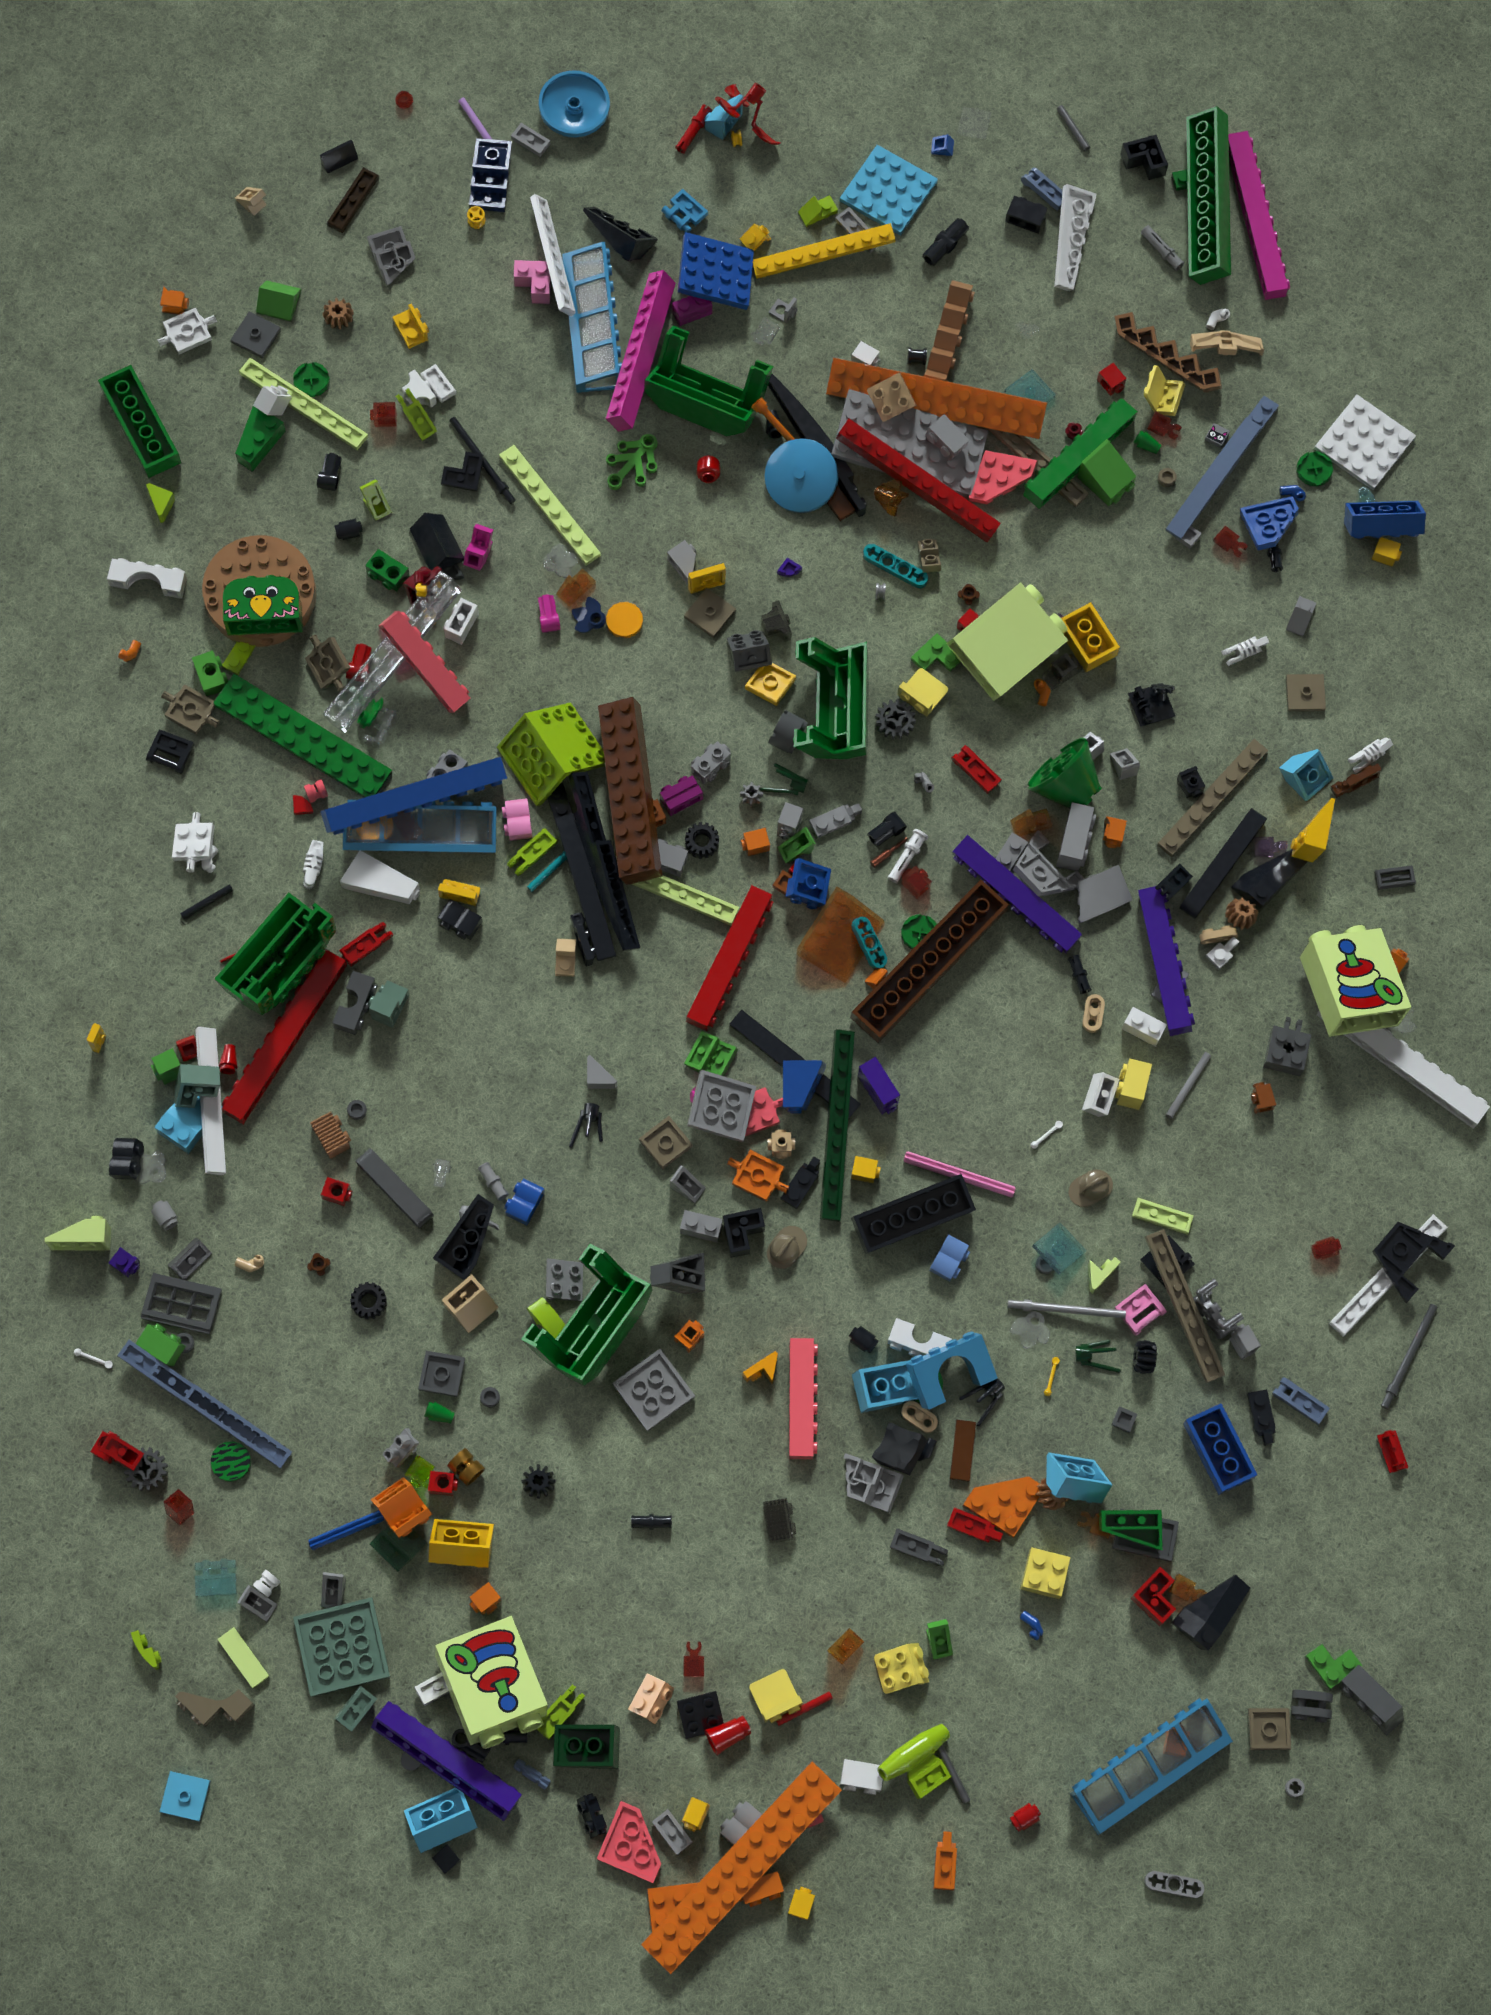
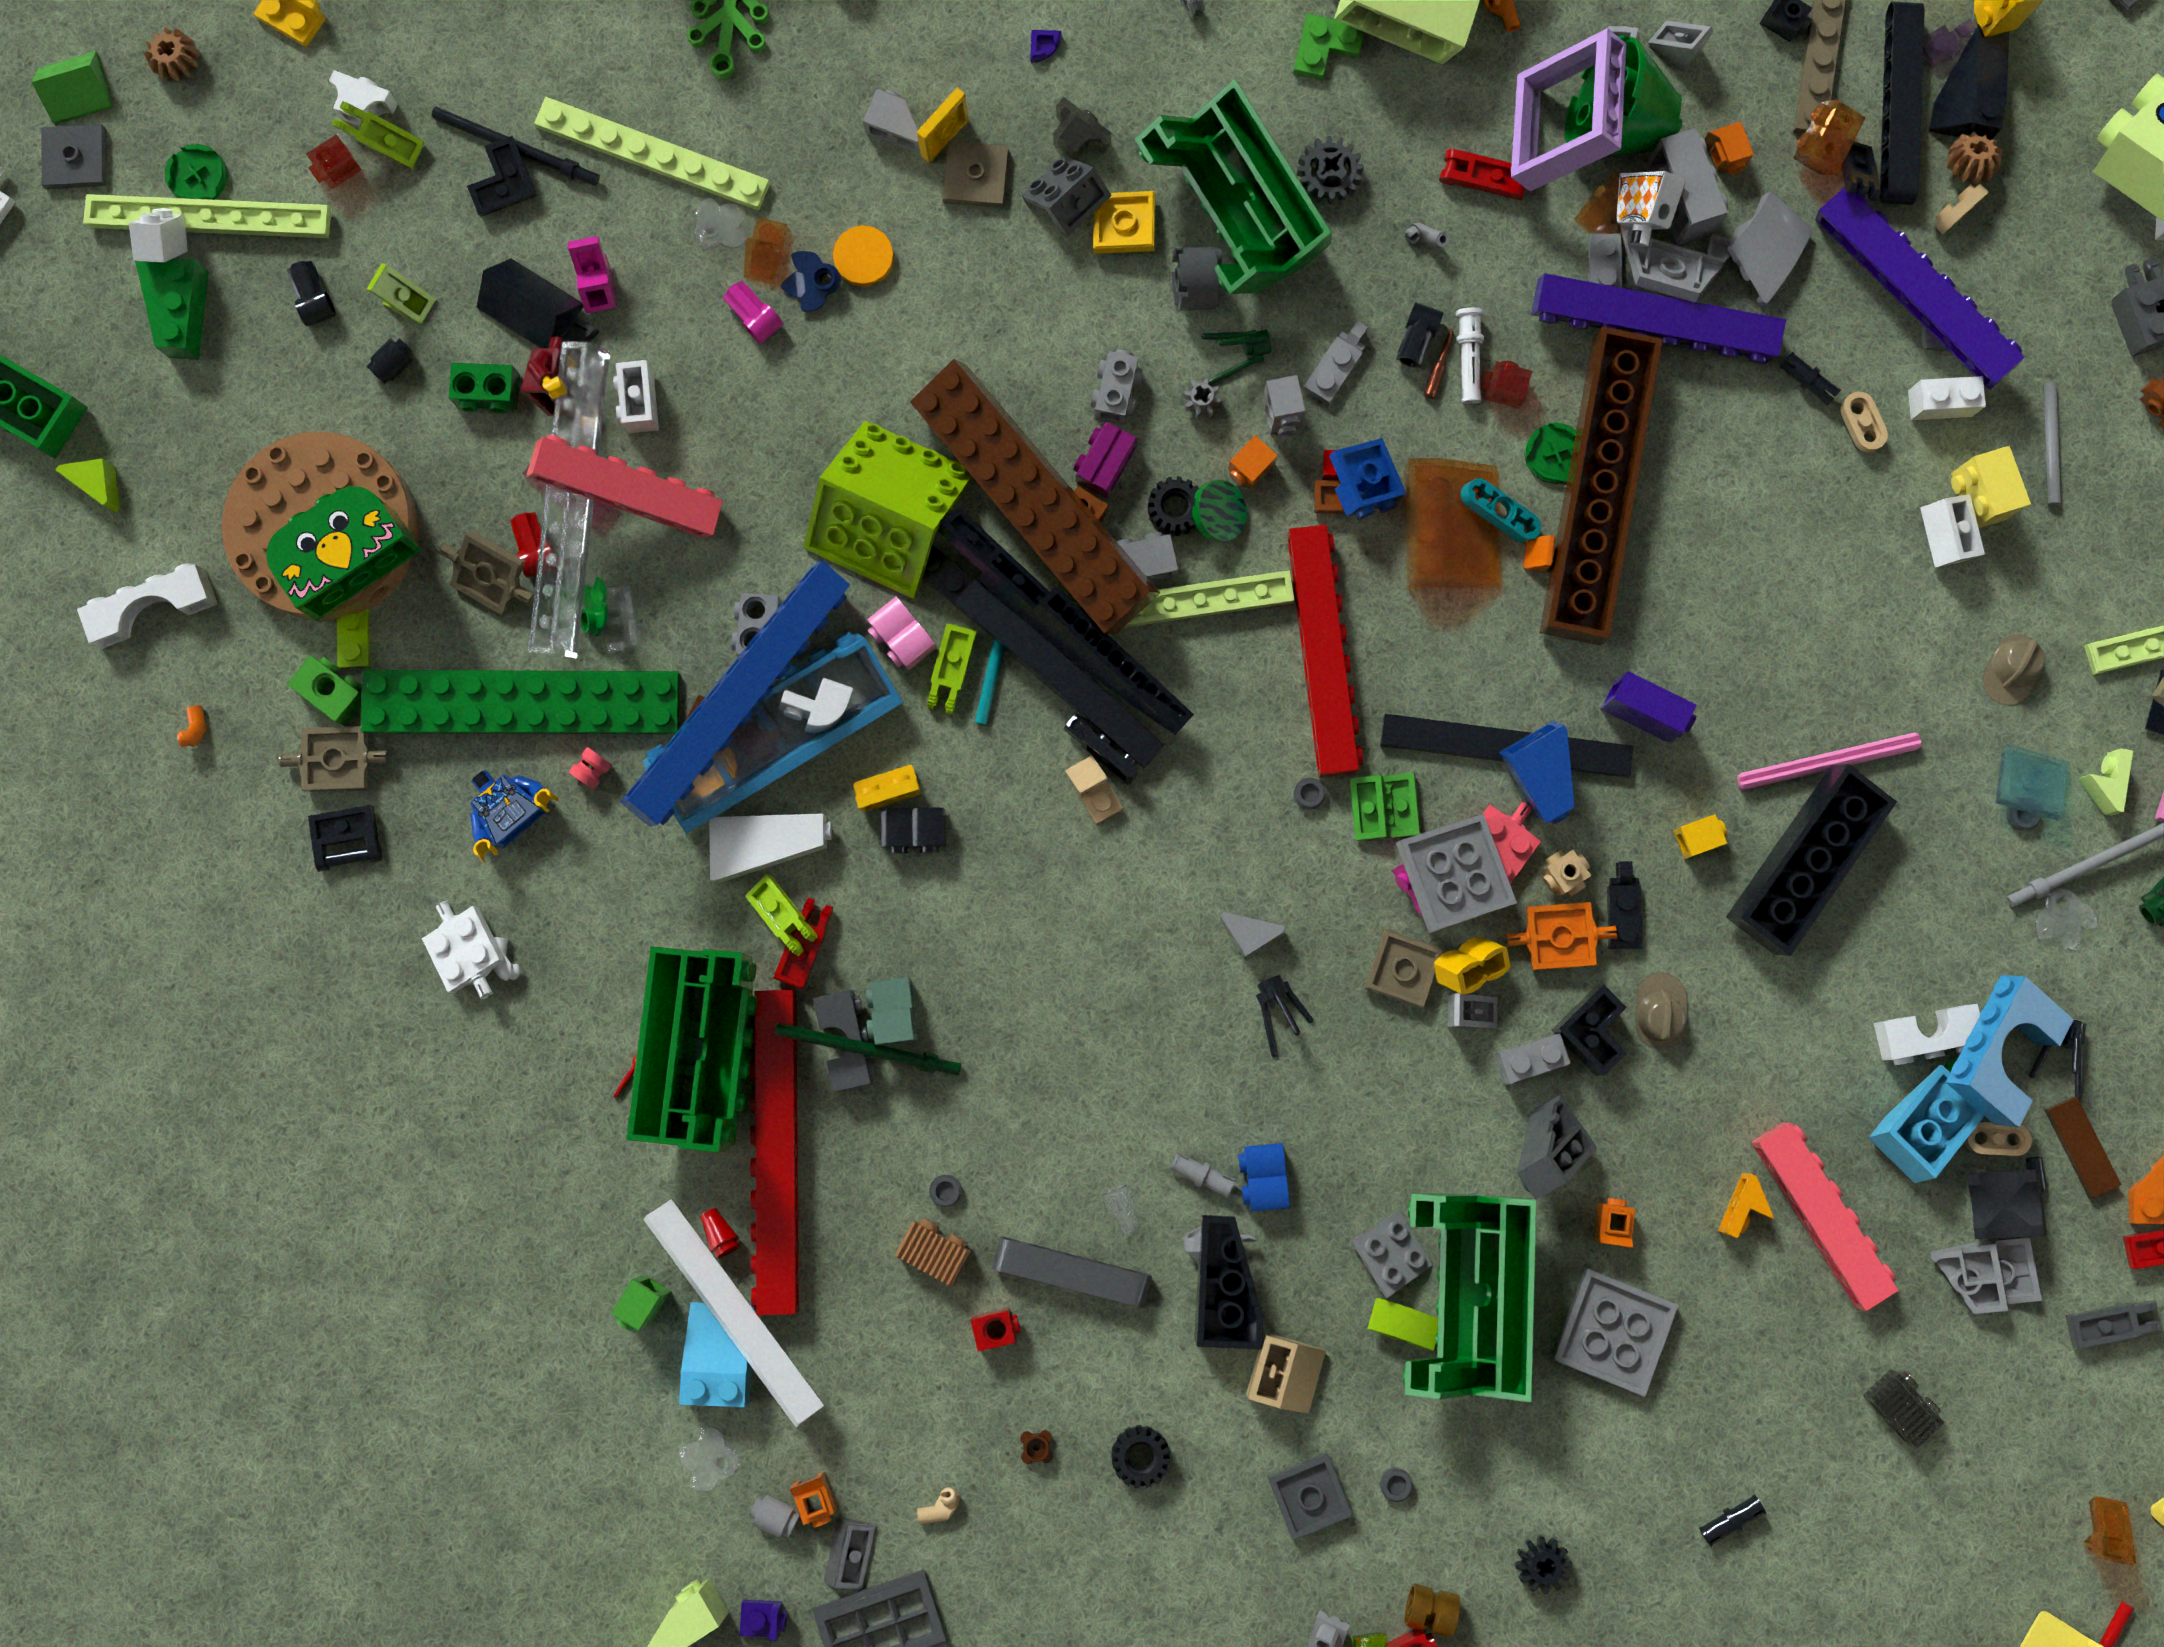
camera: 25 degrees left, 10 degrees up
(96, 1037) = (510, 1325): yellow plate -> none
(126, 1158) = (667, 1471): black brick -> none
(187, 1048) = (648, 1251): red slope -> none
(188, 1228) = (809, 1488): none -> orange window
(194, 1082) = (698, 1305): sand green brick -> none
(207, 901) = (538, 1023): black bar -> none
(259, 785) = (505, 810): none -> torso
(301, 805) = (583, 801): red tile -> none
(313, 863) = (654, 875): white hinge -> none
(364, 919) = (779, 913): none -> lime hinge
(389, 1038) = (927, 1062): none -> dark green bar
(438, 1413) = (1341, 1555): green cone -> none
(440, 385) = (381, 70): white plate -> none
(451, 832) = (823, 711): none -> white brick
(675, 1026) = (1309, 793): none -> dark grey tile
(700, 1158) = (1472, 965): none -> yellow brick
(722, 855) = (1219, 510): none -> green tile
(797, 845) = (1313, 433): bright green slope -> none
(837, 1125) = (1624, 798): dark green plate -> none
(863, 1339) = (1853, 1077): black brick -> none
(922, 691) = (1342, 108): light yellow bracket -> none
(949, 1258) = (1895, 889): medium blue brick -> none
(1044, 831) = (1647, 202): none -> white torso
(1055, 1361) = (2124, 943): yellow hinge -> none
(1058, 1125) = (1914, 608): white hinge -> none
(1063, 742) = (1609, 57): none -> lavender window
(1168, 856) = (1828, 137): none -> clear orange brick
(1221, 954) = (1977, 232): white plate -> none

